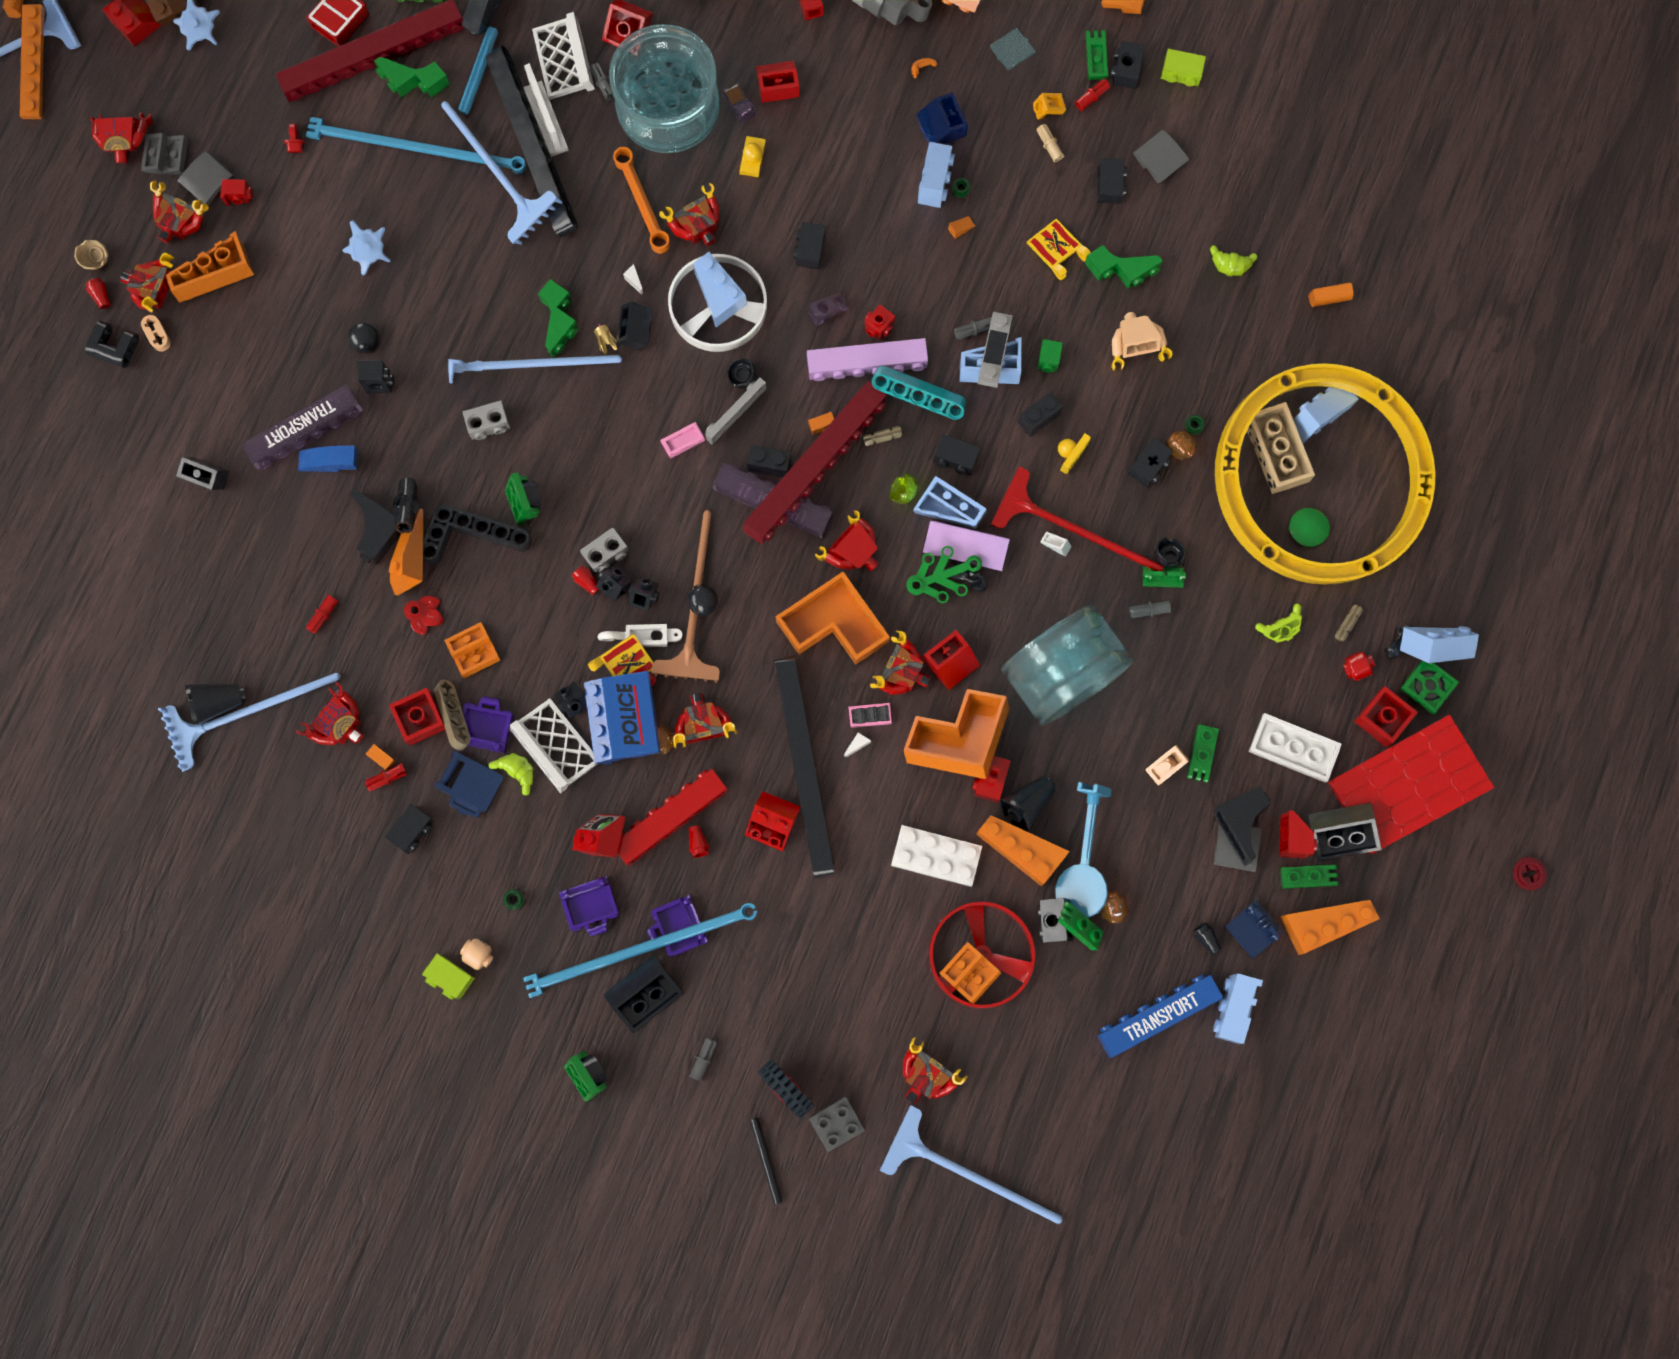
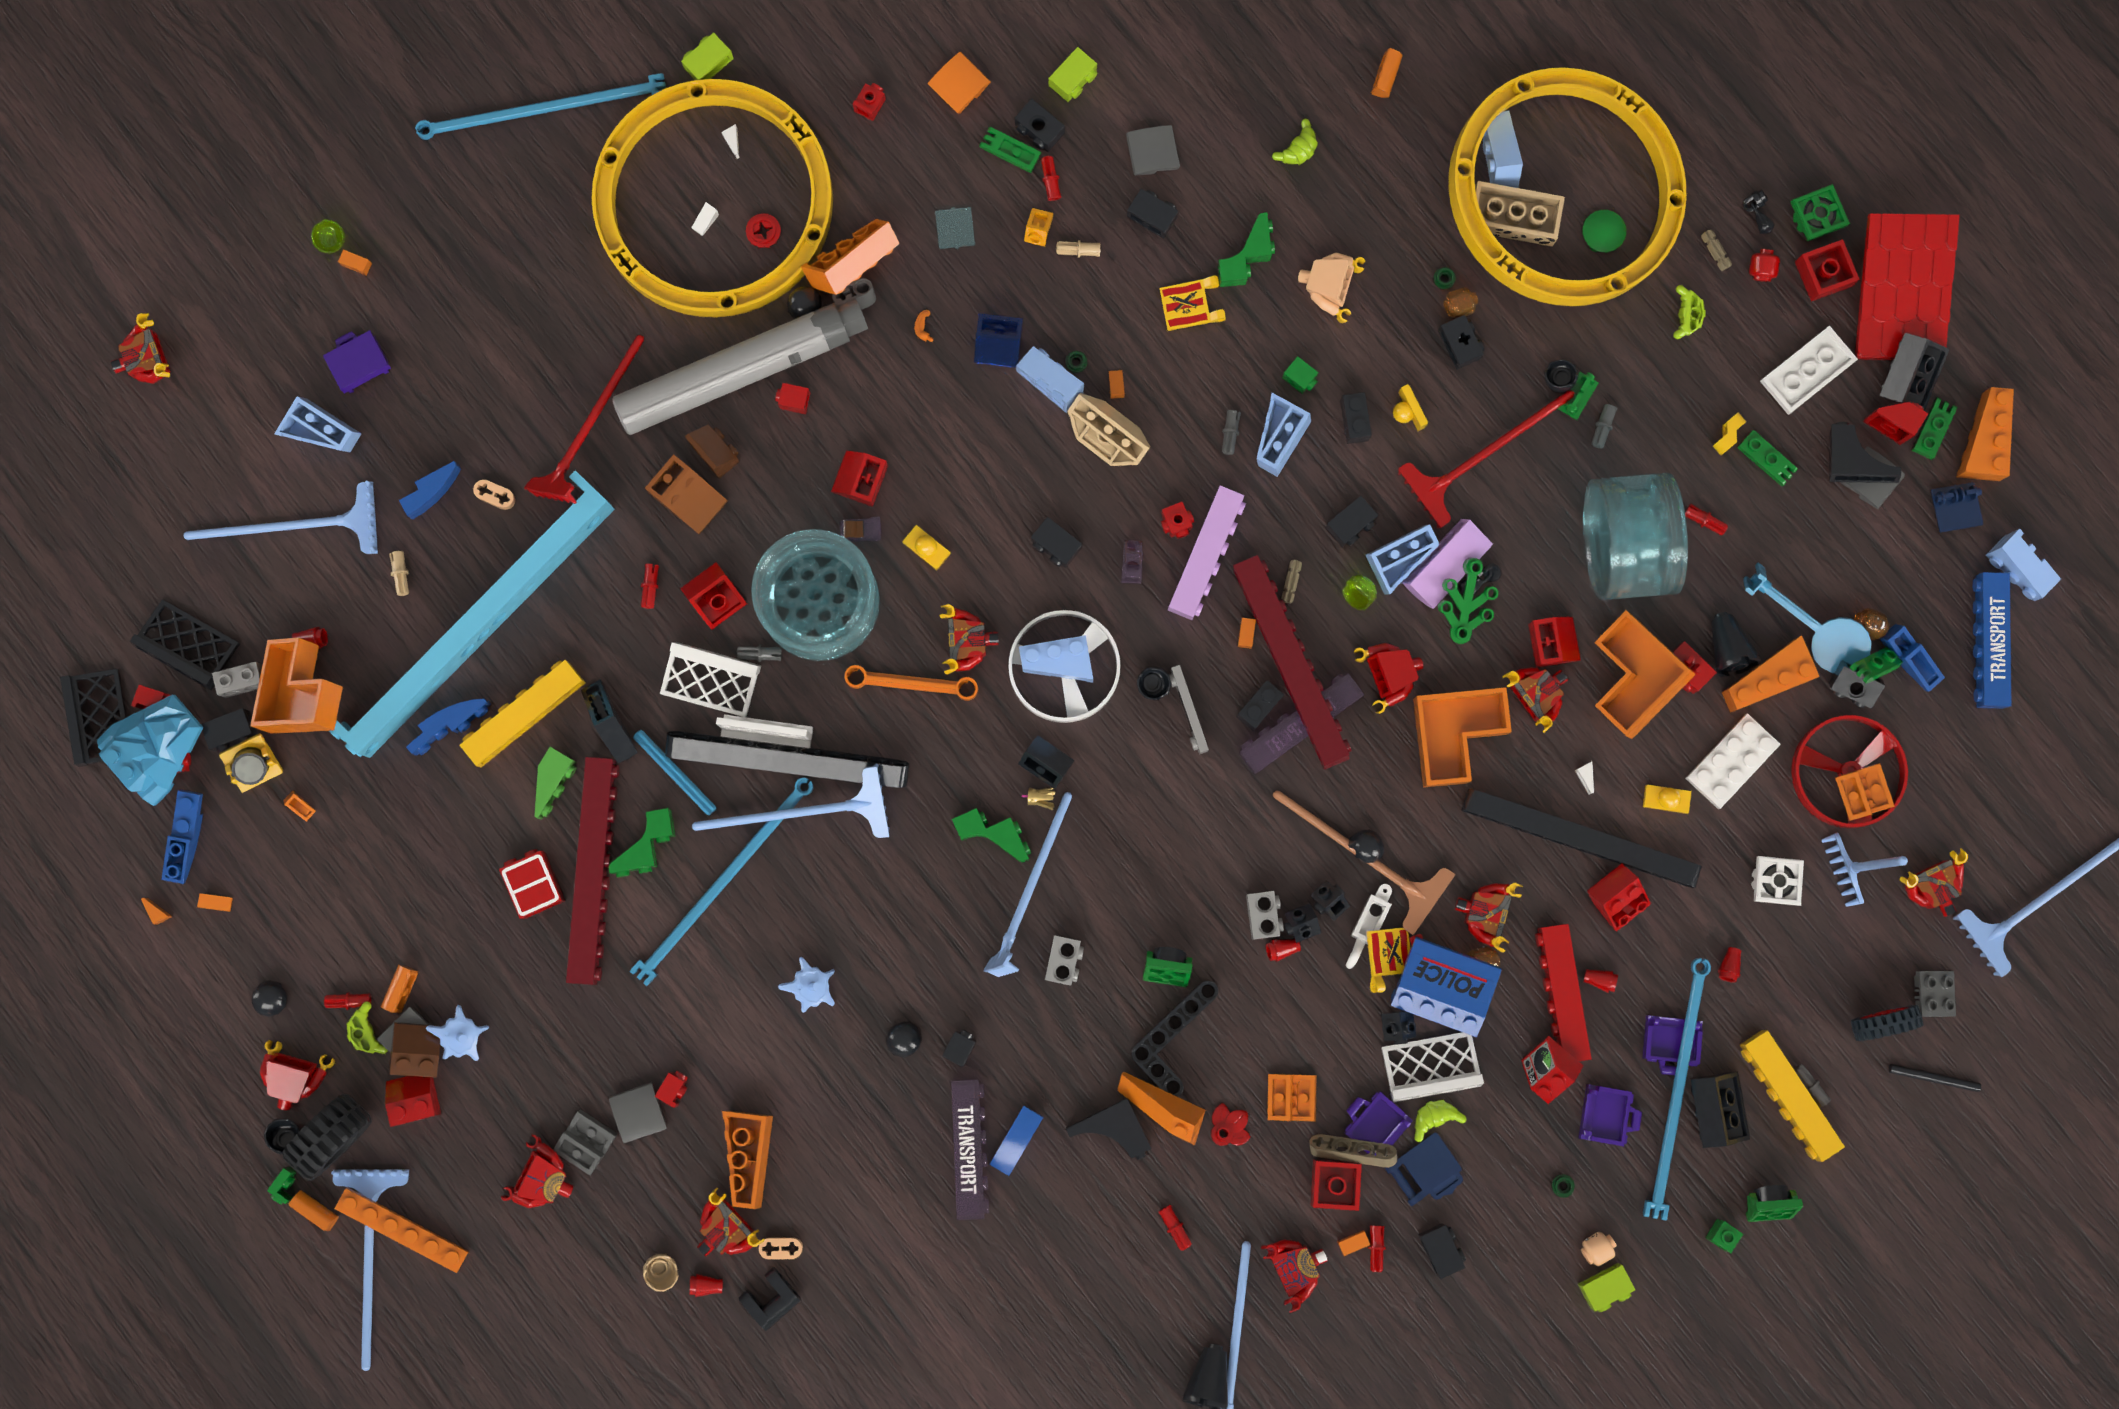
camera: 60 degrees left, 5 degrees up
(175, 215) = (664, 1164): torso -> none
(202, 473) = (965, 1273): black brick -> none
(294, 145) = (649, 1002): red piece -> none
(405, 505) = (1113, 1086): black piece -> none
(539, 1050) = (1724, 1235): none -> green brick
(632, 278) = (991, 736): white piece -> none
(682, 440) = (1188, 777): bright pink tile -> none
(684, 1047) = (1791, 1095): none -> yellow brick
(766, 940) = (1730, 966): none -> red cone
(856, 940) = (1777, 881): none -> white piece
(870, 715) = (1564, 748): tile -> none
(875, 818) = (1667, 799): none -> yellow tile
(900, 994) = (1853, 868): none -> light blue piece
(913, 384) = (1271, 522): teal beam -> none
(919, 234) = (1107, 431): none -> tan wedge
(995, 349) = (1273, 425): plate -> none
(1056, 543) = (1489, 477): white piece -> none
(1106, 957) = (1914, 657): none -> blue slope
(1121, 729) = (1705, 519): none -> red axle
(1167, 765) = (1764, 497): light nougat slope -> none
(1207, 937) = (1941, 555): black cone -> none
(1210, 710) = (1729, 433): none -> yellow piece
(1439, 643) = (1787, 180): light blue wedge -> none
(1532, 864) = (2044, 222): dark red gear -> none

